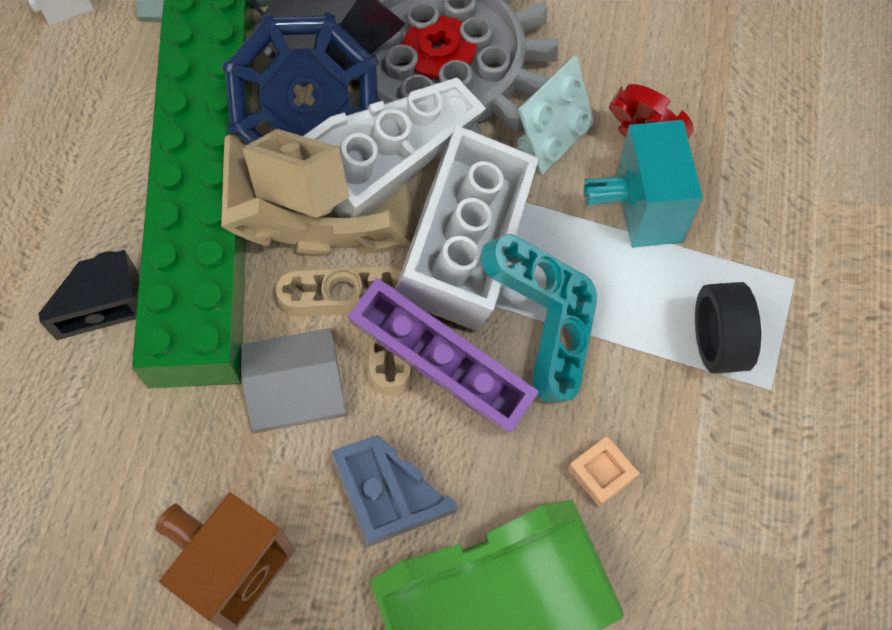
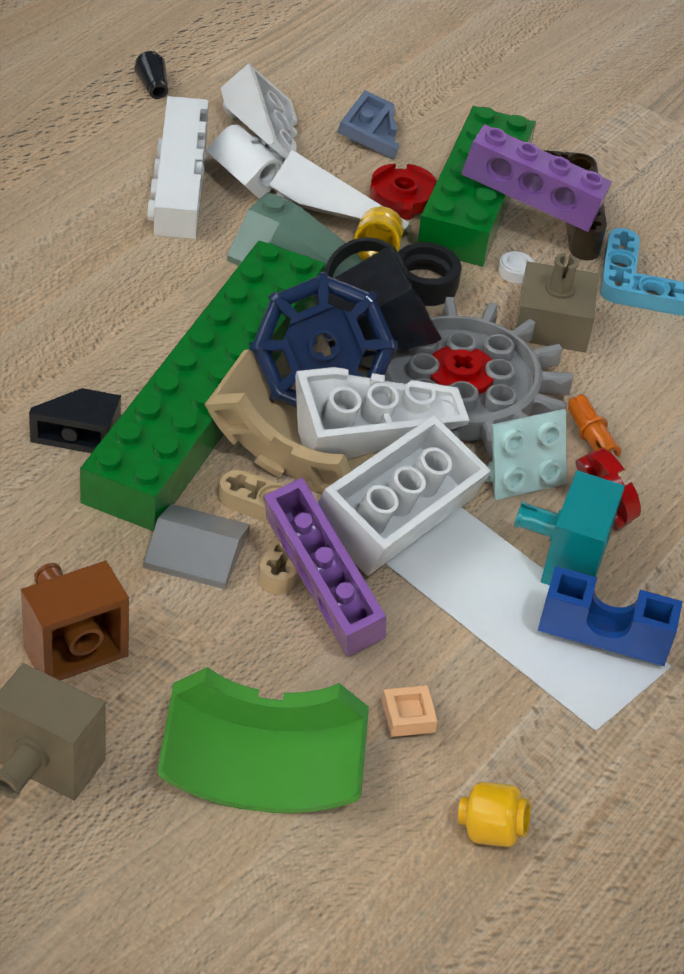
camera: 20 degrees right, 20 degrees down
(297, 172) = (285, 392): tan brick -> none
(386, 491) = (226, 643): sand blue wing -> none
(564, 292) = (445, 573): teal beam -> none
(589, 51) = (592, 427): none -> orange axle
(727, 327) = (575, 652): black tyre -> none
(749, 551) = (495, 814): none -> yellow head
(765, 261) = (638, 630): none -> blue arch

